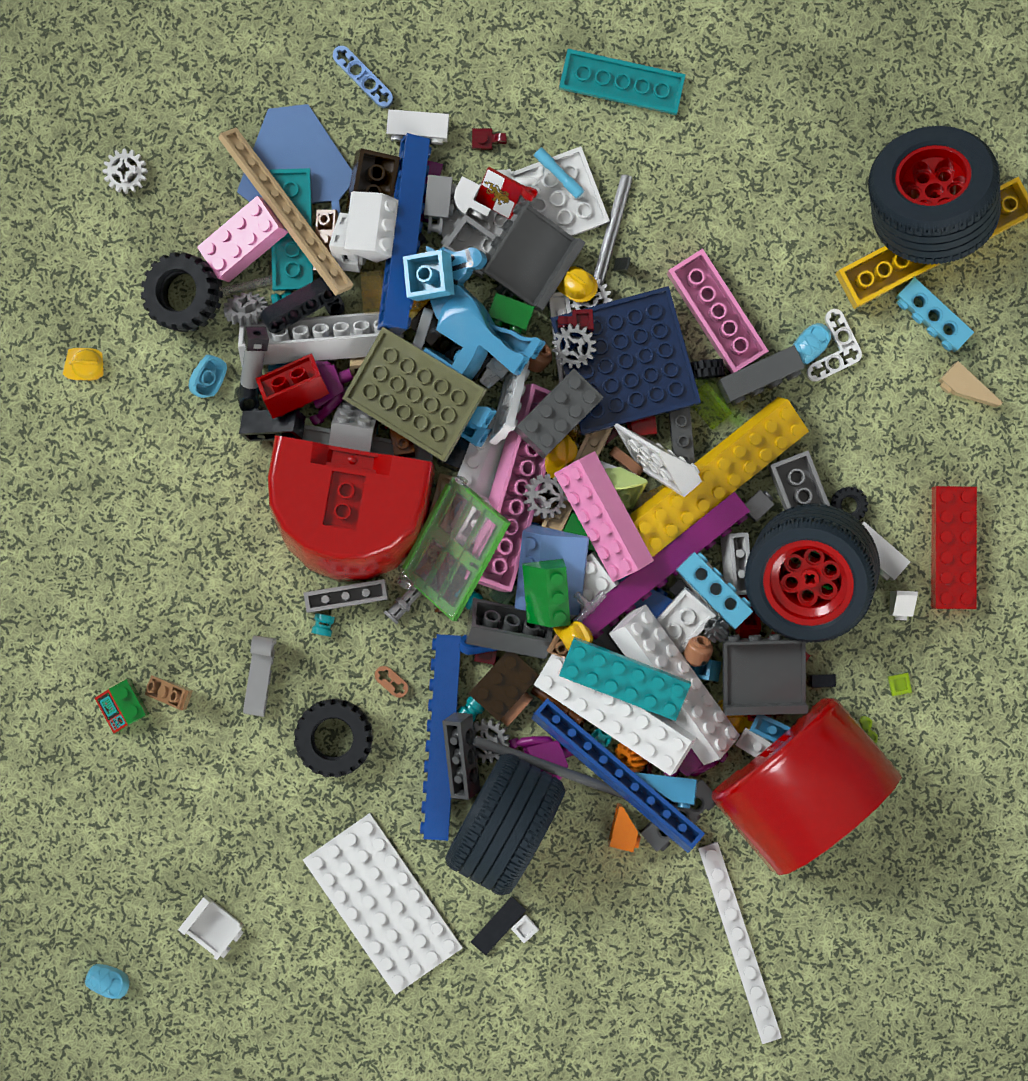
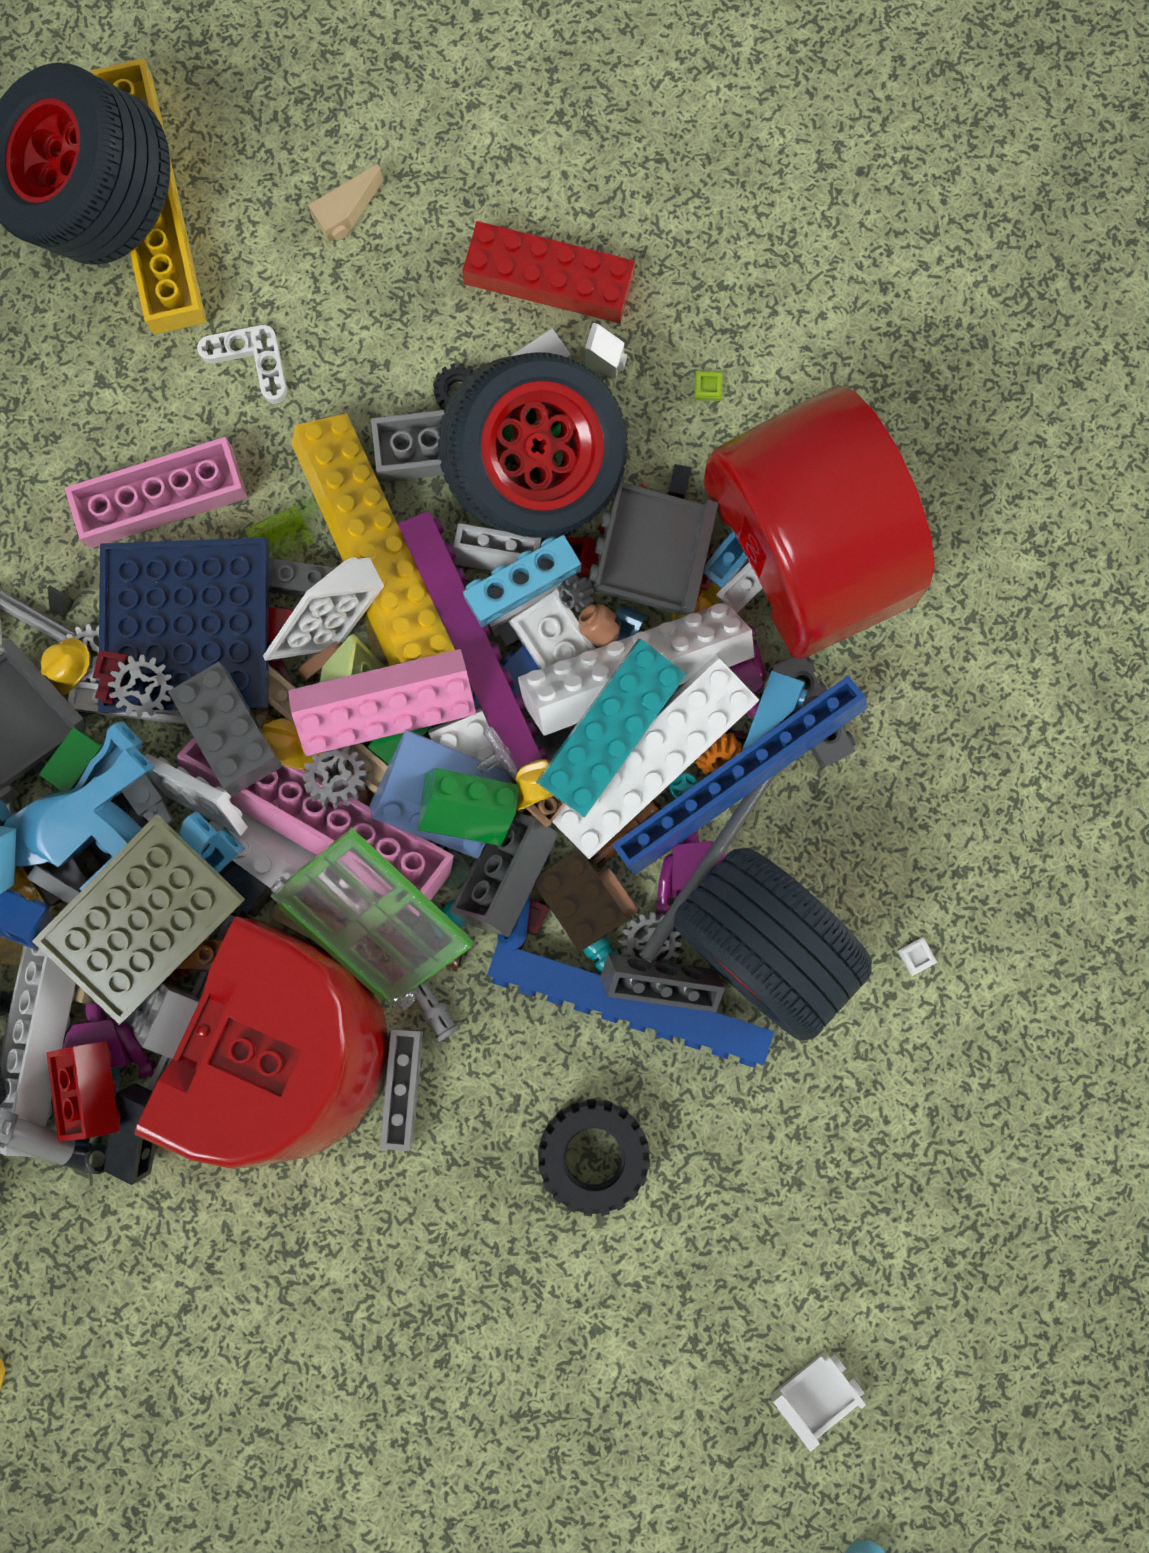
camera: 75 degrees left, 5 degrees down
(121, 705) = (472, 1451): green slope -> none
(169, 692) = (472, 1377): medium nougat slope -> none
(207, 376) = (44, 1208): medium azure piece -> none
(259, 675) = (480, 1240): light grey beam -> none
(323, 629) = (439, 1134): teal wheel -> none
(382, 903) = (838, 1145): white plate -> none
(388, 685) = (541, 1060): nougat beam -> none
(498, 925) = (905, 991): black tile -> none
(542, 360) = (154, 740): nougat head -> none
(623, 832) = (817, 788): orange slope -> none
(707, 368) = (228, 520): black tyre -> none
(739, 943) = (1000, 674): white plate -> none
(759, 504) = (425, 498): flat silver brick -> none
(760, 375) = (256, 456): dark grey brick -> none
(812, 342) = (234, 386): medium azure piece -> none
(945, 316) = (244, 210): medium azure brick -> none

